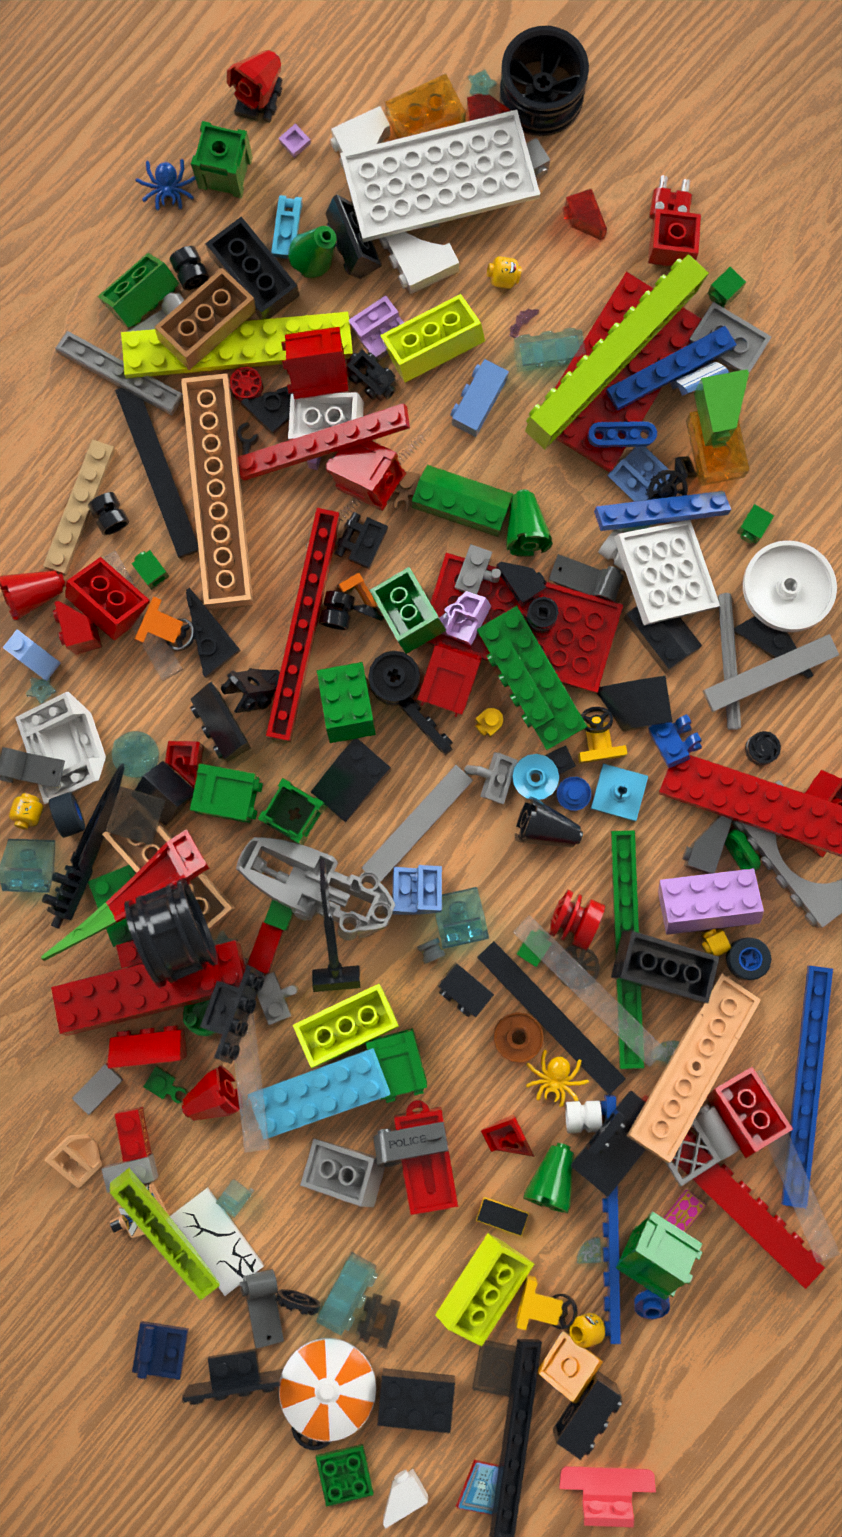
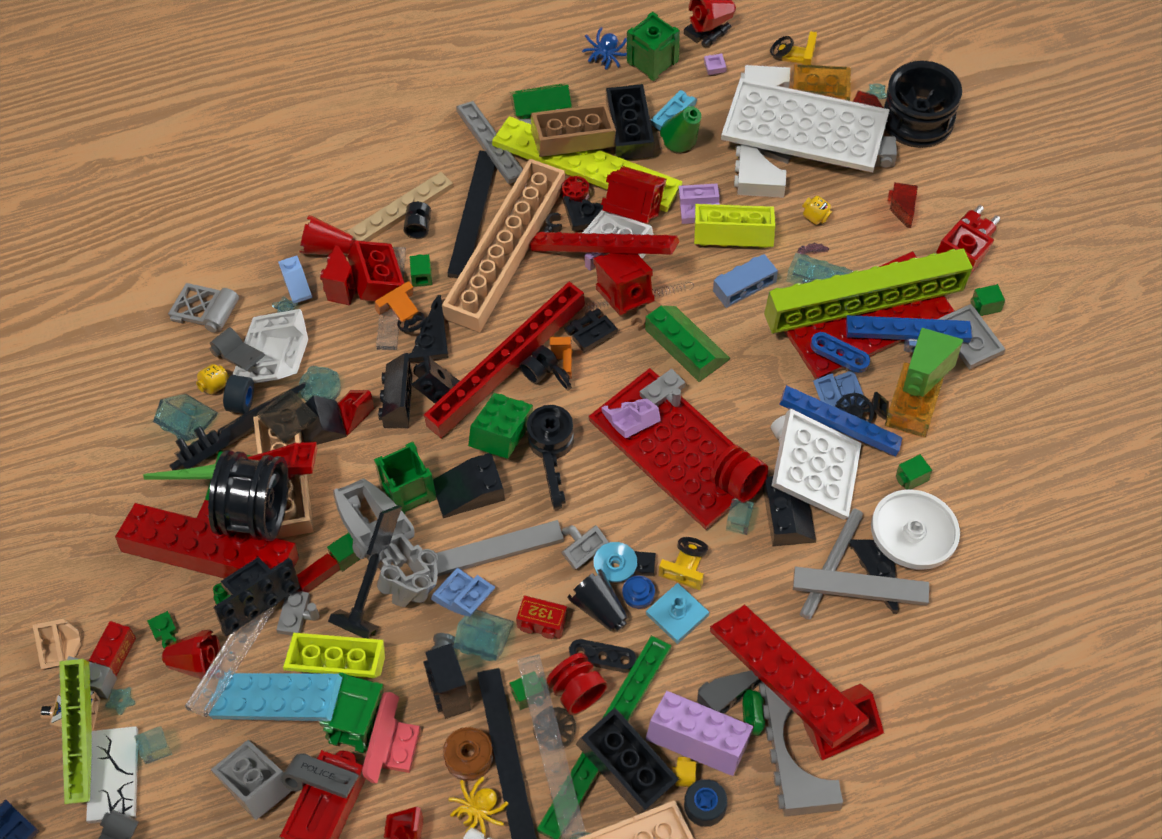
camera: 30 degrees right, 25 degrees down
(97, 1089) = (112, 603): light grey tile -> none
(147, 1047) = (171, 591): red slope -> none
(178, 1169) = (120, 694): none -> clear light blue plate
(189, 269) = (585, 95): black wheel -> none
(225, 793) = (362, 438): green container -> none
(358, 255) = (713, 150): black slope -> none
(370, 77) = (794, 53): none -> yellow piece
(378, 381) = (671, 223): black brick -> none
(407, 610) = (591, 386): green brick -> none
(445, 1067) = (391, 742): none -> coral plate
(449, 678) = (592, 449): red container -> none
(489, 722) = (605, 503): yellow plate -> none
(502, 871) = (541, 617): none -> red brick
(522, 581) = (695, 413): black slope -> none
(527, 526) = (723, 382): green cone -> none
(531, 678) = (657, 486): green plate -> none
(542, 614) = (695, 442): black wheel -> none
(586, 579) = (745, 437): dark grey door -> none
(588, 870) = (613, 653): none -> black plate
(605, 627) = (739, 473): none -> red wheel
(622, 663) = (739, 517): none -> clear light blue panel
(638, 702) = (734, 550): black slope -> none
(670, 744) = (742, 595): blue plate -> none
(762, 748) = (820, 643): black wheel -> none

